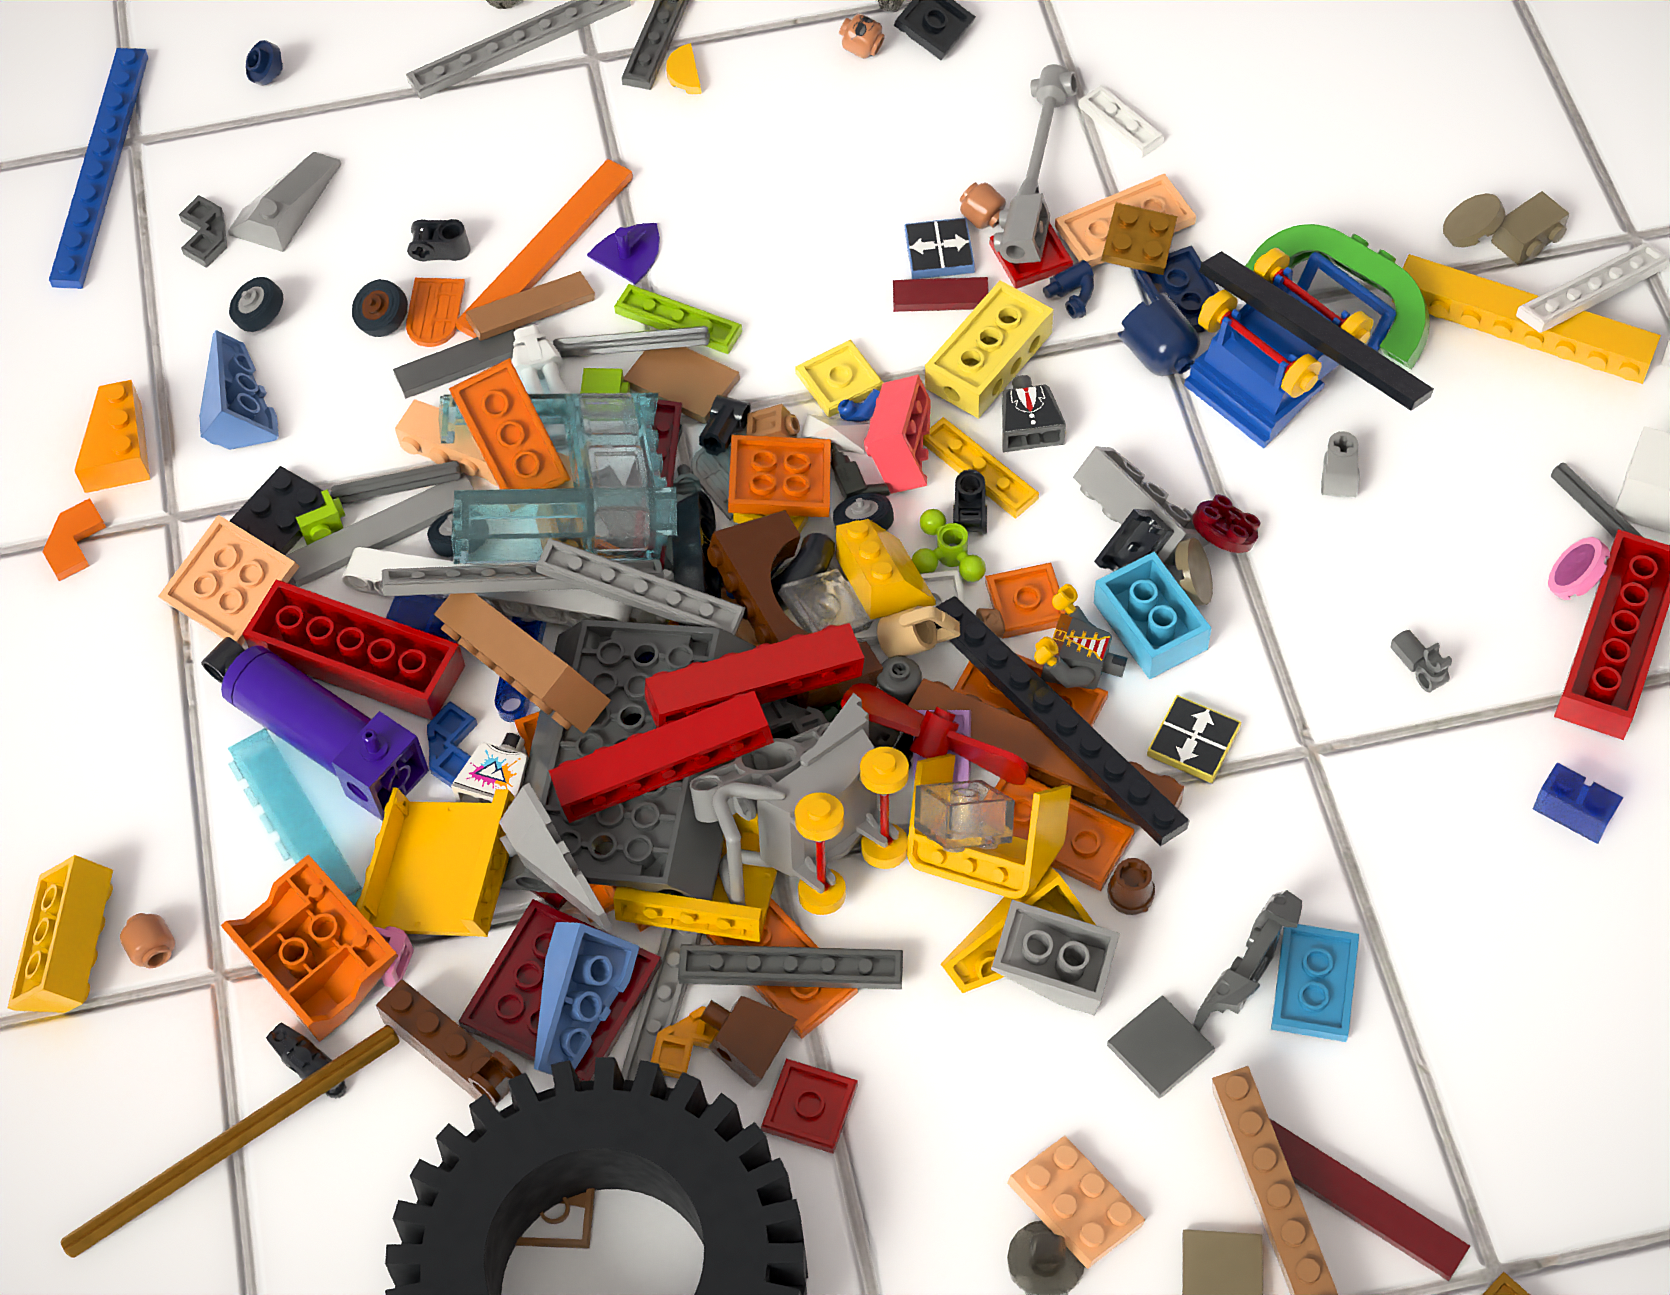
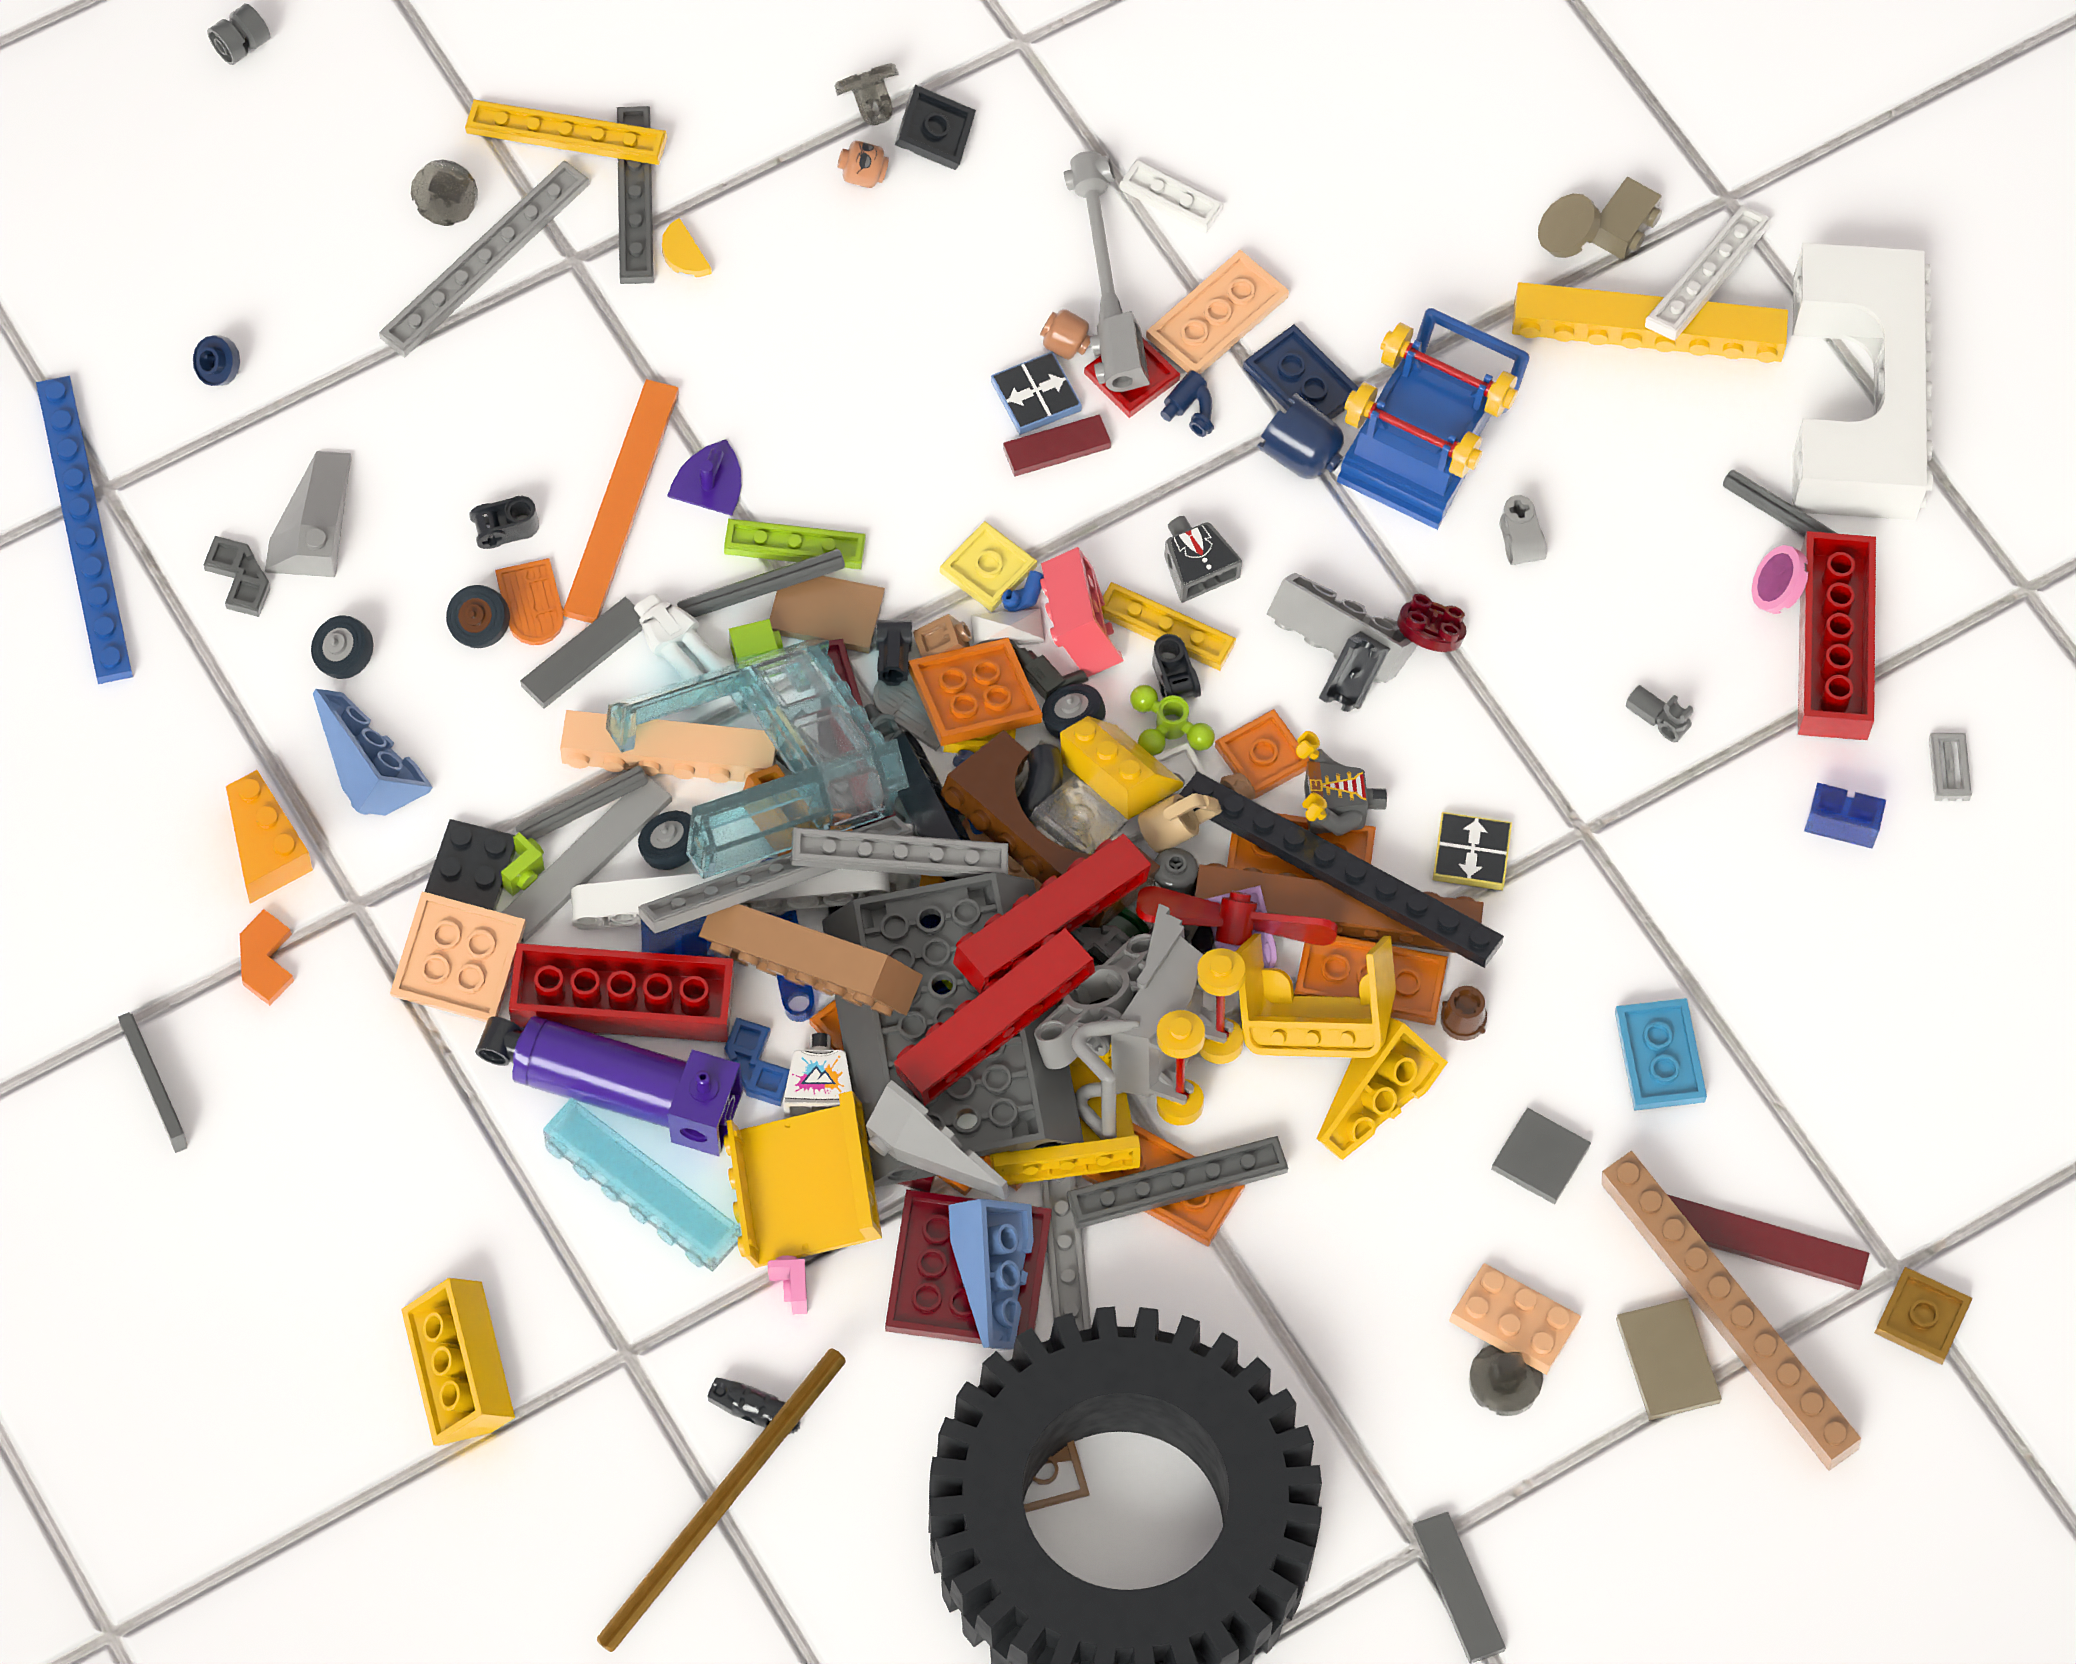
camera: 25 degrees left, 5 degrees up
(147, 940) = (545, 1339): nougat head -> none
(313, 947) = (717, 1297): orange piece -> none
(446, 1044) = (889, 1351): reddish brown hinge -> none
(509, 429) = (700, 726): orange tile -> none
(530, 305) = (637, 571): medium nougat tile -> none
(675, 1043) = (1115, 1264): light orange tile -> none
(747, 1036) = (1165, 1259): reddish brown torso -> none
(809, 1105) = (1242, 1305): red tile -> none
(964, 815) = (1294, 990): clear brick -> none
(988, 349) = (1133, 496): light yellow brick -> none
(1056, 956) = (1424, 1100): light grey slope -> none
(1139, 238) = (1241, 332): pearl gold plate -> none
(1152, 615) = (1393, 738): medium azure brick -> none
(1197, 580) = (1420, 681): dark tan tile -> none
(1242, 978) = (1597, 1082): dark grey piece -> none
(1317, 331) = (1465, 403): black tile -> none
(1412, 321) = (1495, 310): bright green arch -> none

